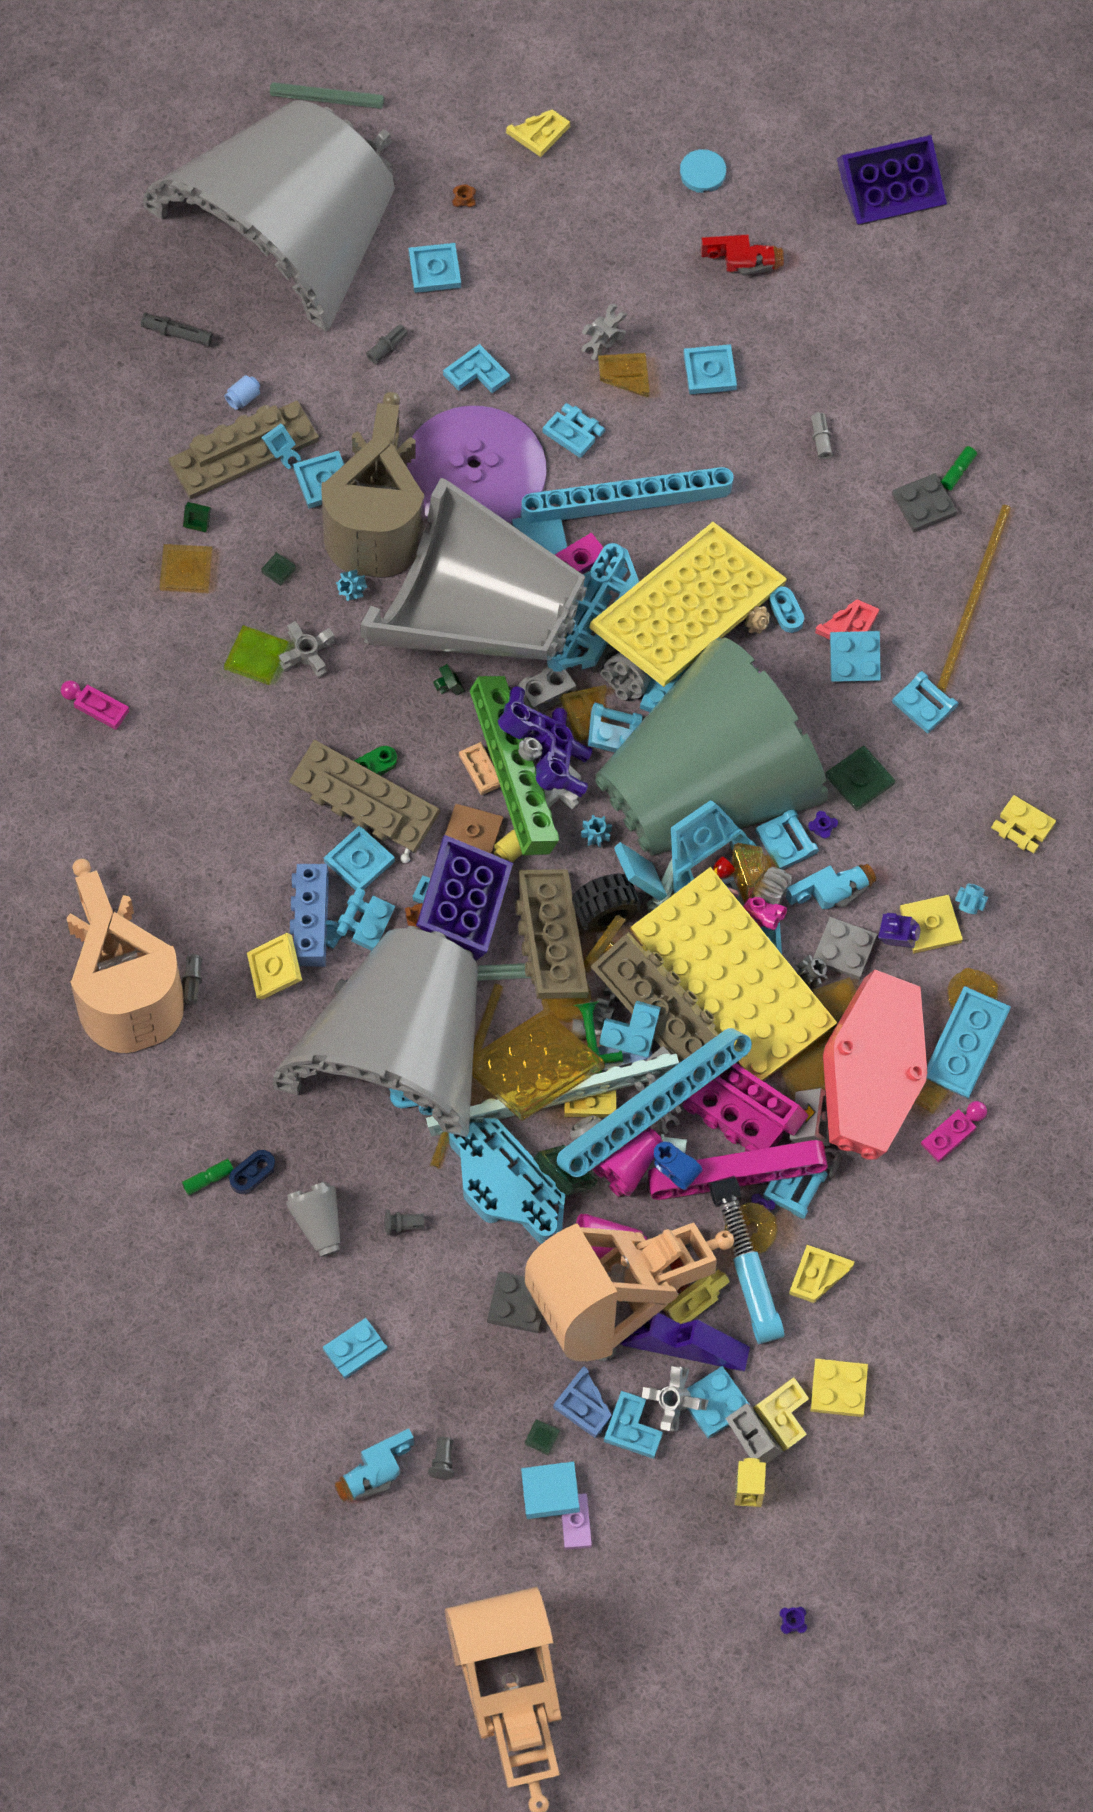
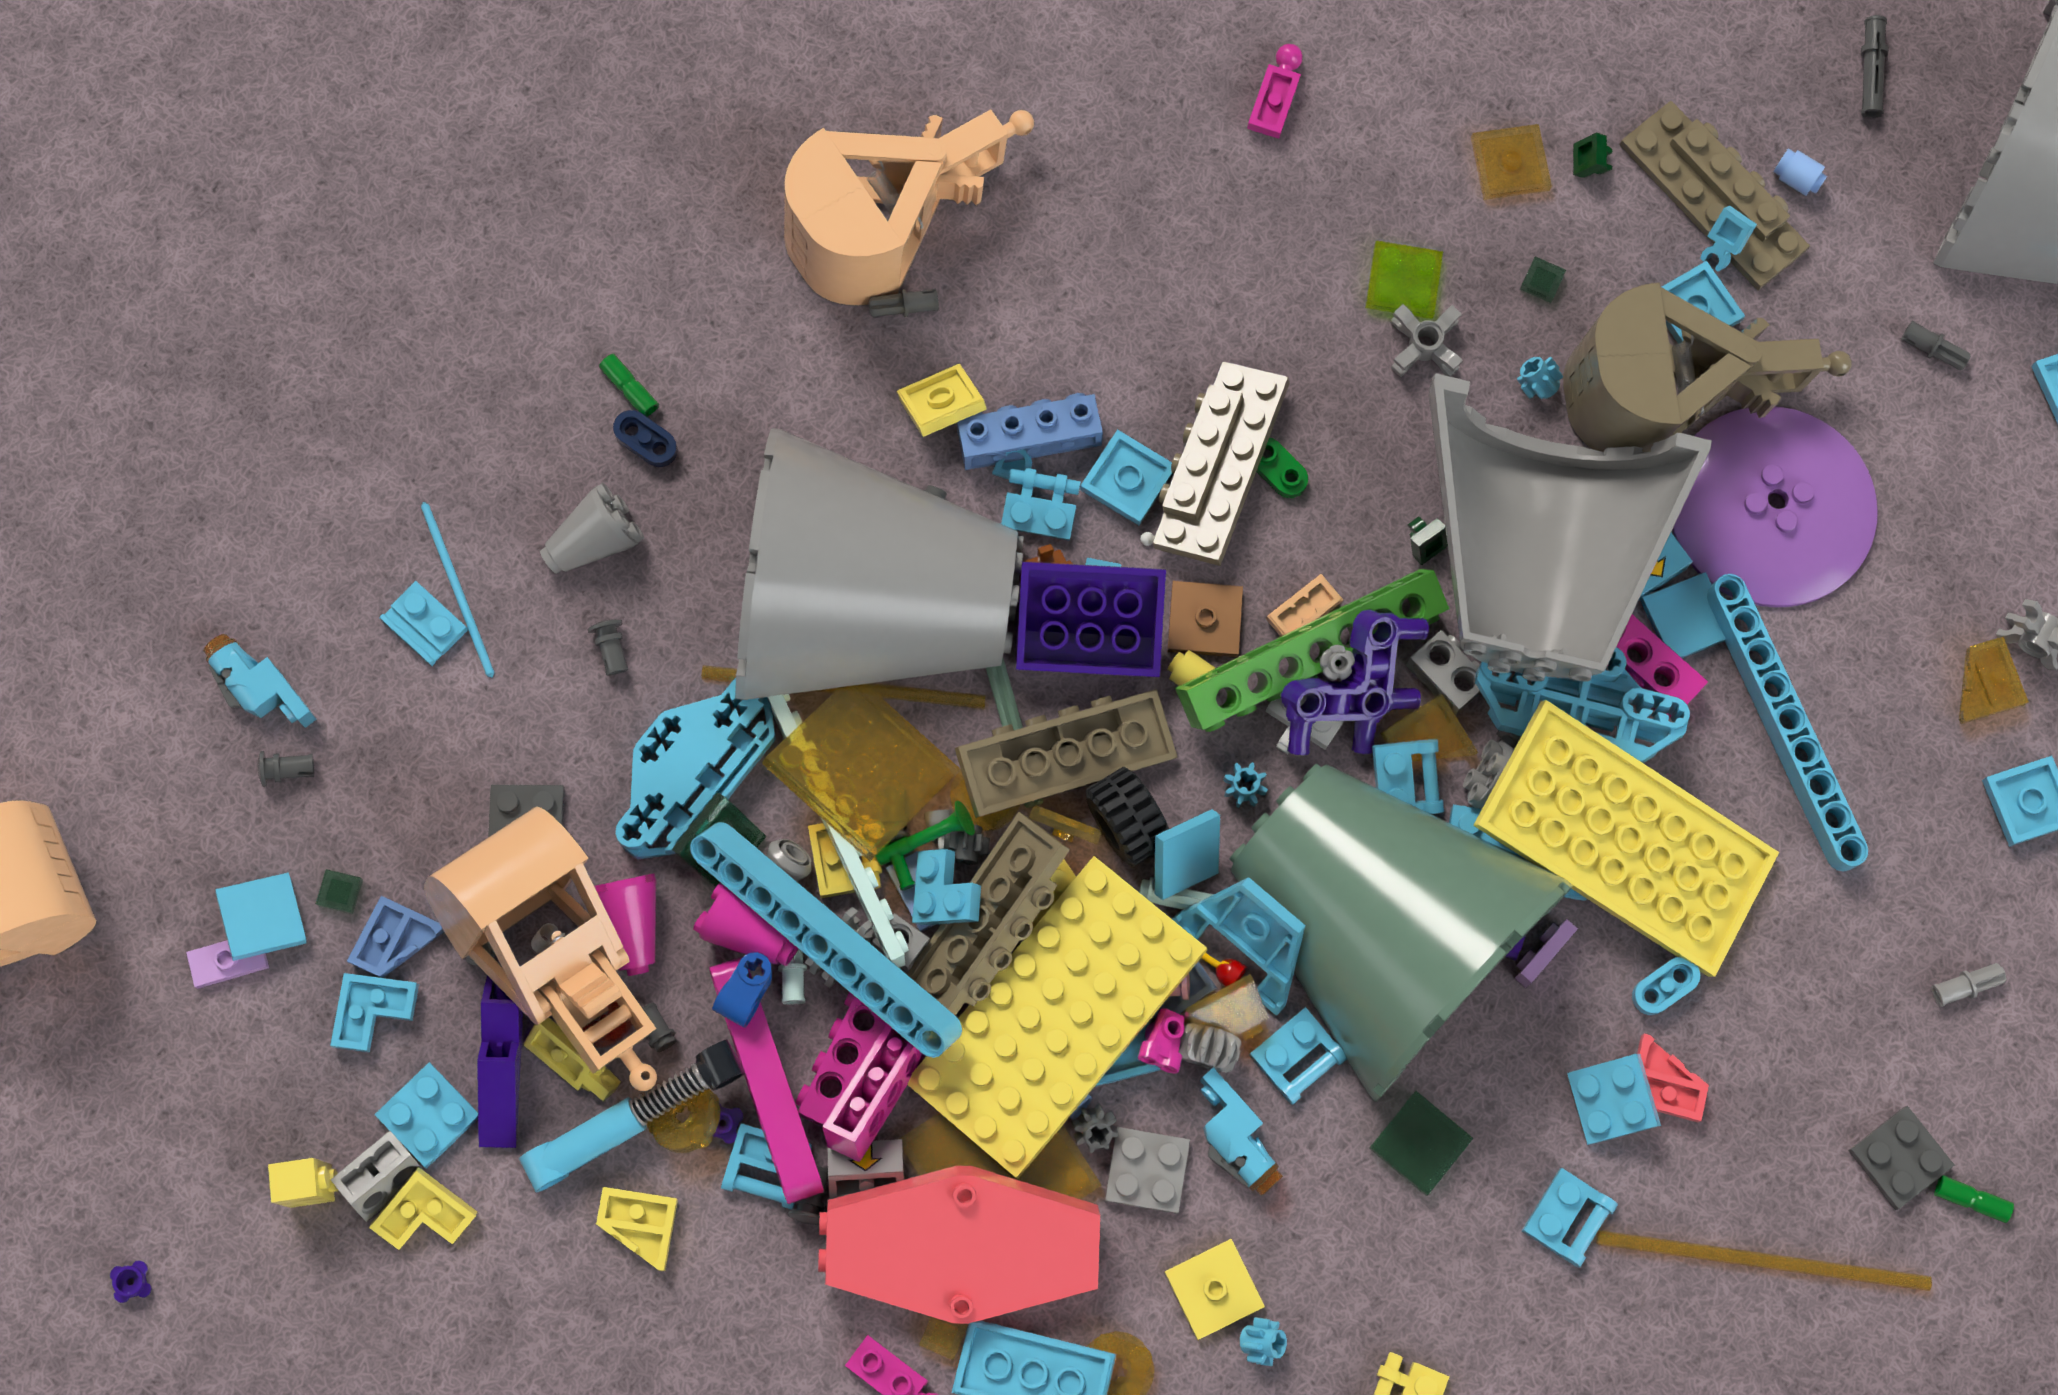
camera: 75 degrees right, 10 degrees up
(333, 1322) = (457, 589): none -> medium azure axle
(478, 365) = (1938, 474): medium azure plate -> none
(570, 435) = (1863, 625): medium azure plate -> none
(685, 1400) = (412, 1056): light grey pin -> none
(757, 619) = (1637, 947): tan plant -> none
(823, 831) = (1324, 1107): dark purple plate -> none
(839, 1387) = (477, 1284): light yellow plate -> none
(899, 930) = (1185, 1243): dark purple brick -> none

